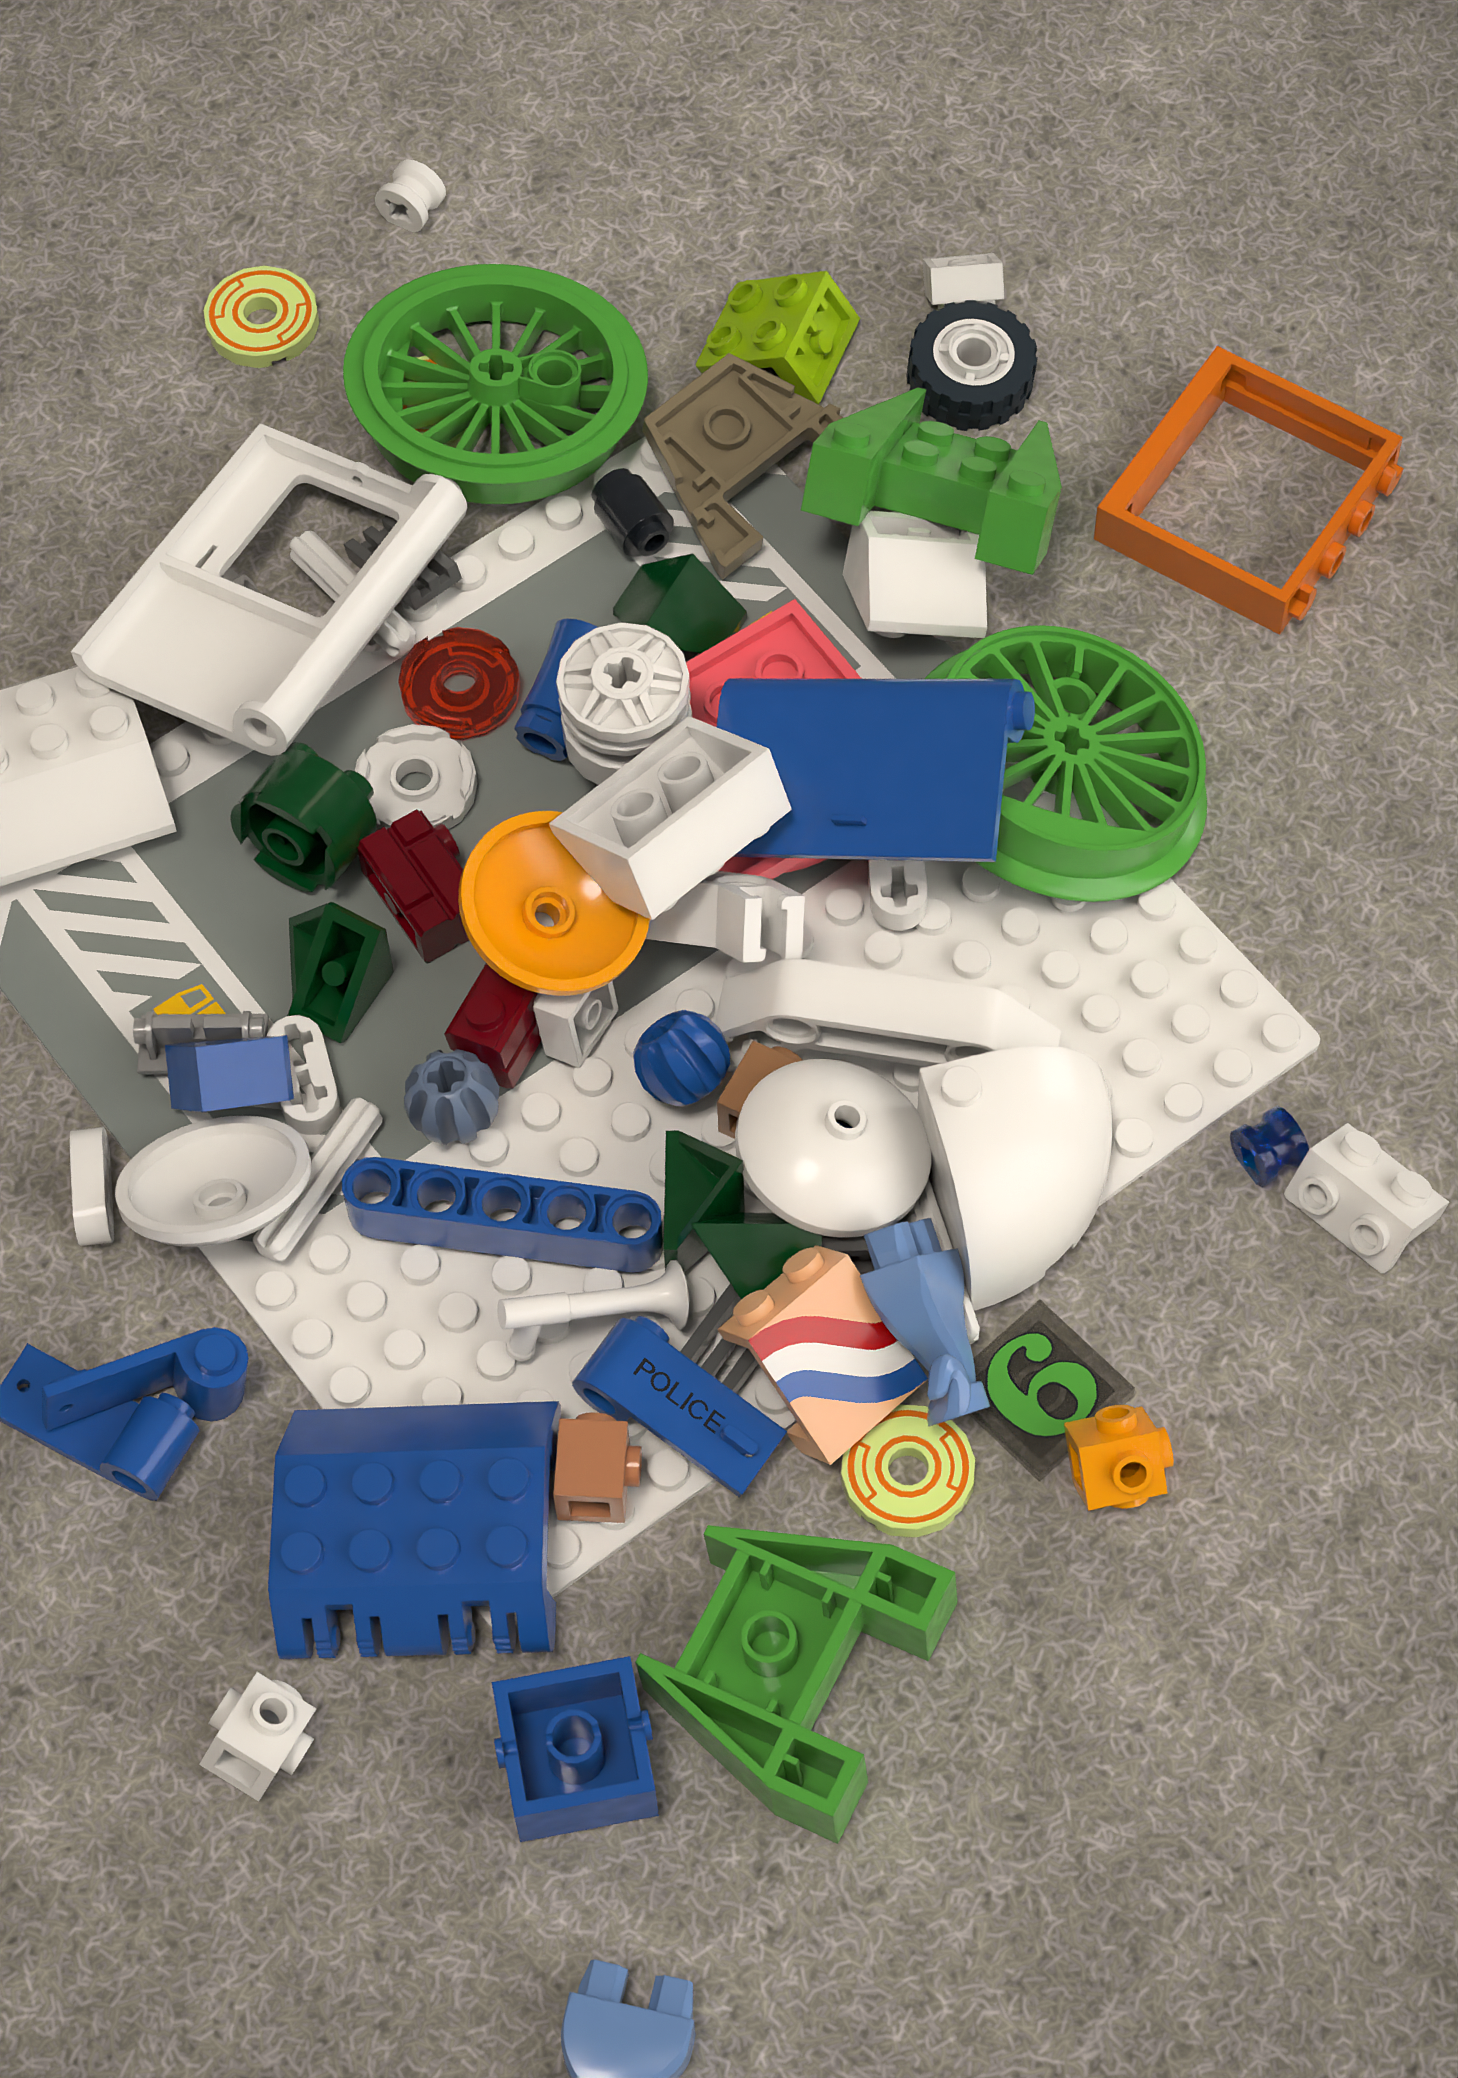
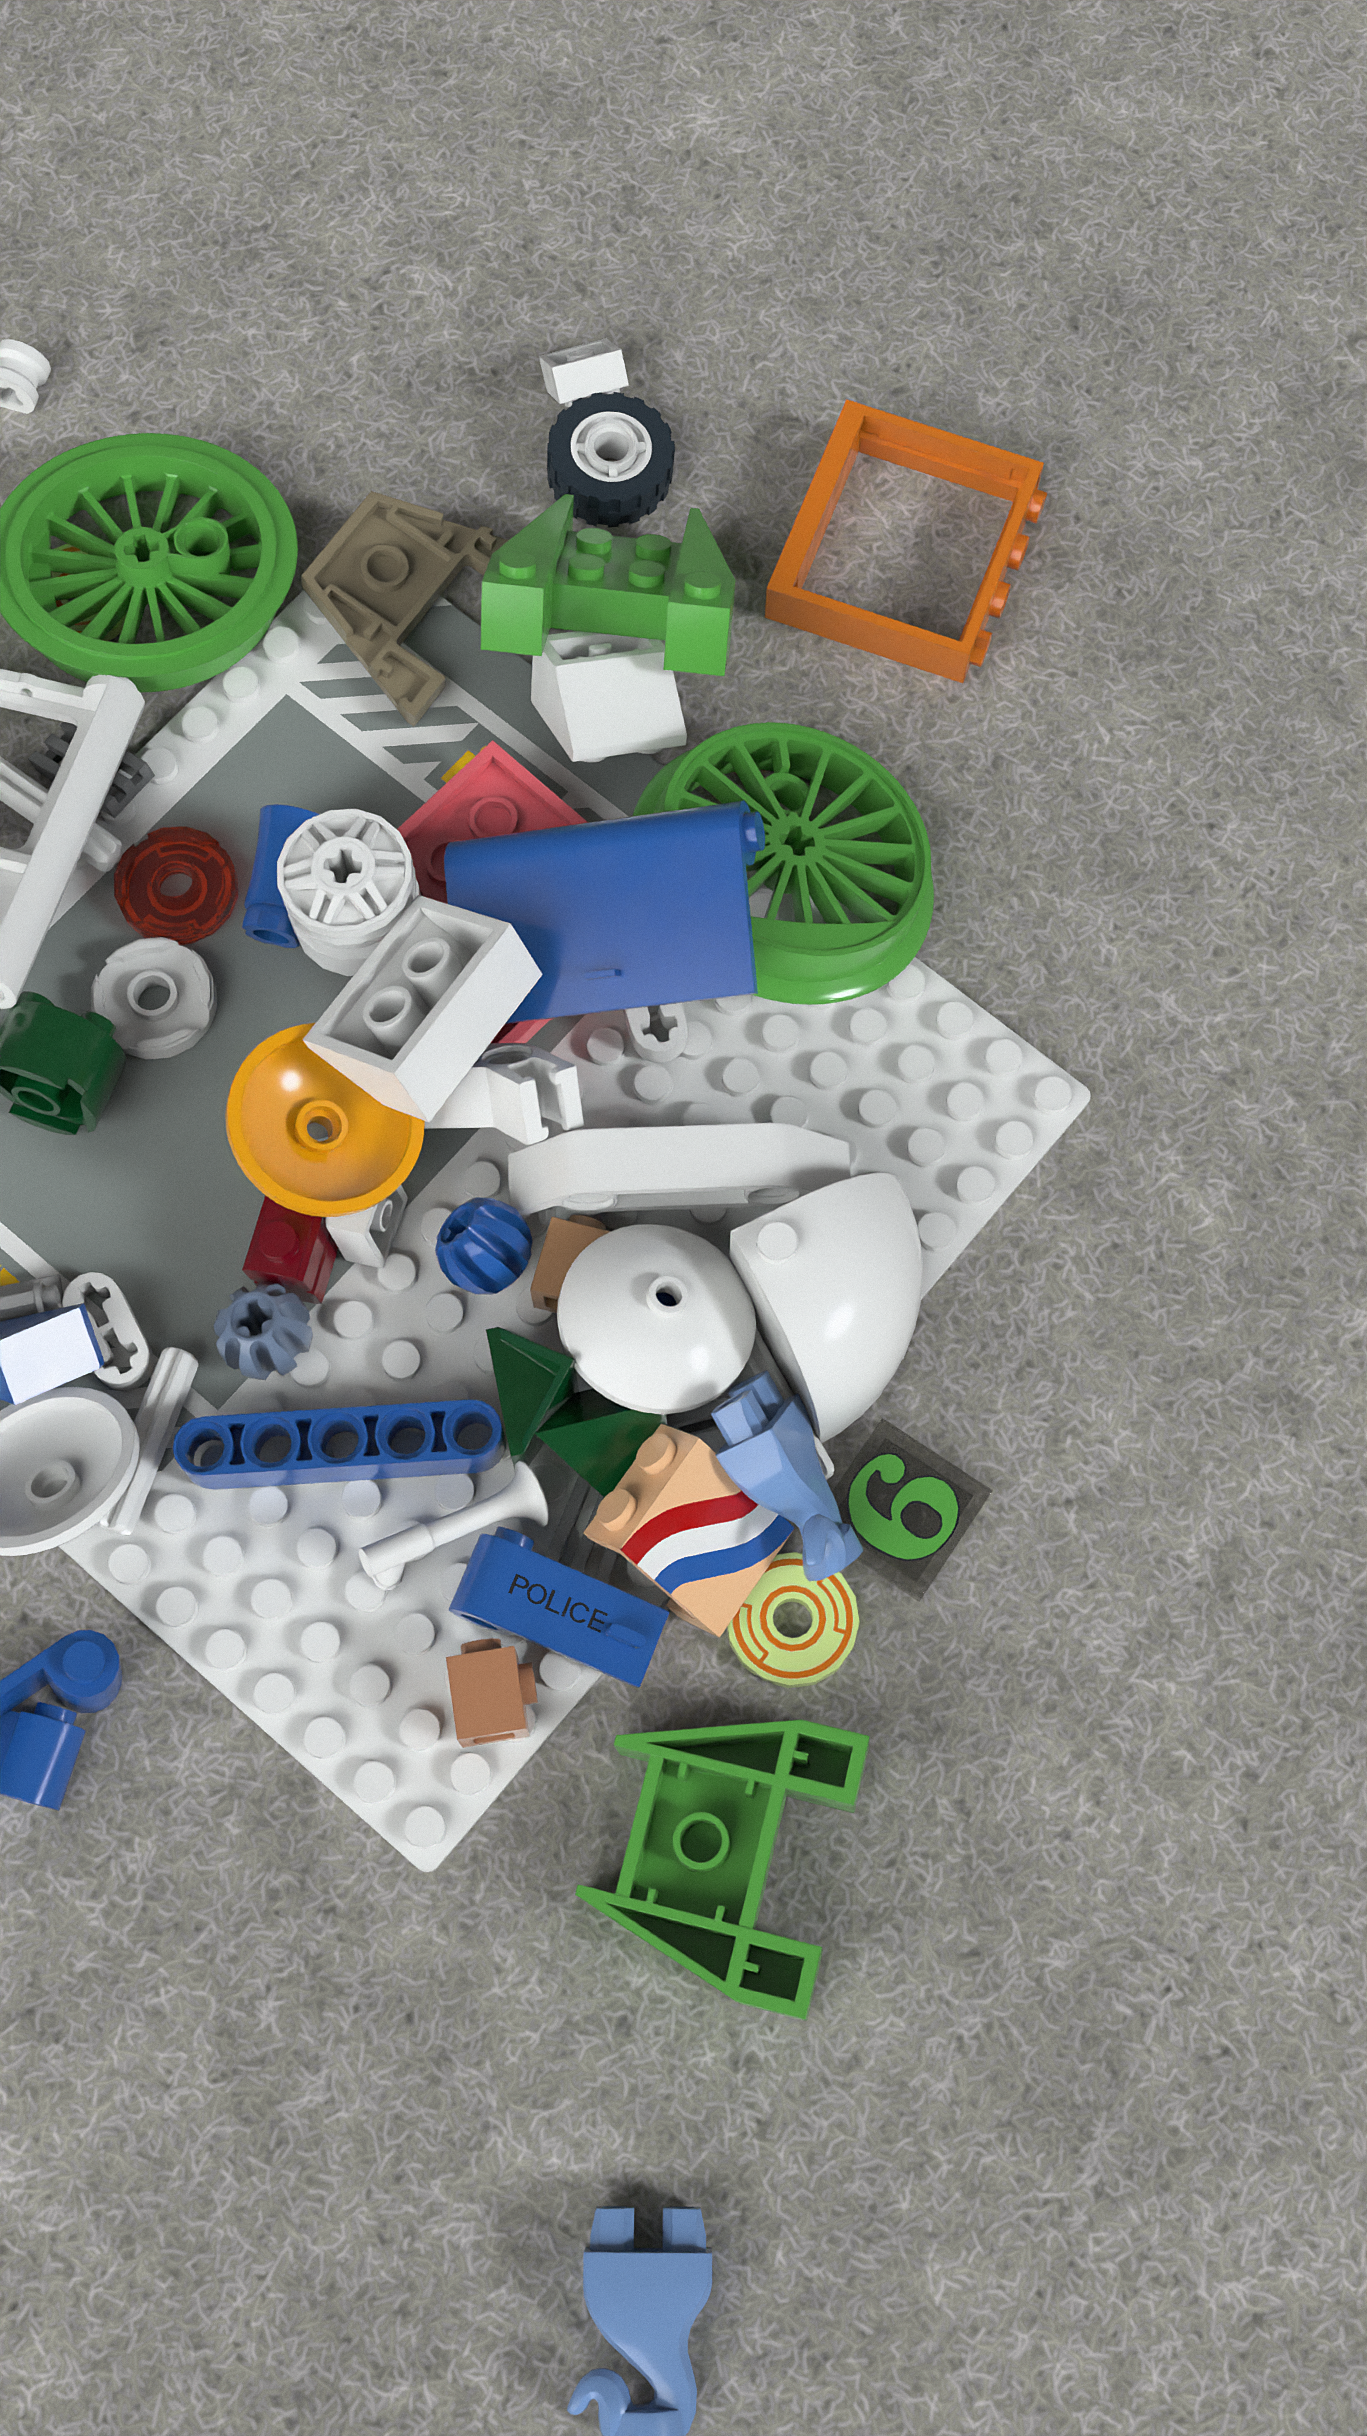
camera: 15 degrees left, 10 degrees up
(258, 1735) = (200, 2064): white brick -> none
(336, 967) = (116, 1216): dark green slope -> none
(411, 1524) = (321, 1791): blue slope -> none
(418, 881) = (179, 1105): dark red brick -> none
(575, 1749) = (532, 1992): blue brick -> none
(632, 513) = (310, 675): black brick -> none
(681, 602) = (377, 766): dark green slope -> none
(786, 324) = (421, 450): lime bracket -> none
(1118, 1457) = (994, 1570): light orange brick -> none
(1269, 1145) = (1069, 1215): clear blue wheel -> none
(1364, 1196) = (1168, 1248): white bracket -> none

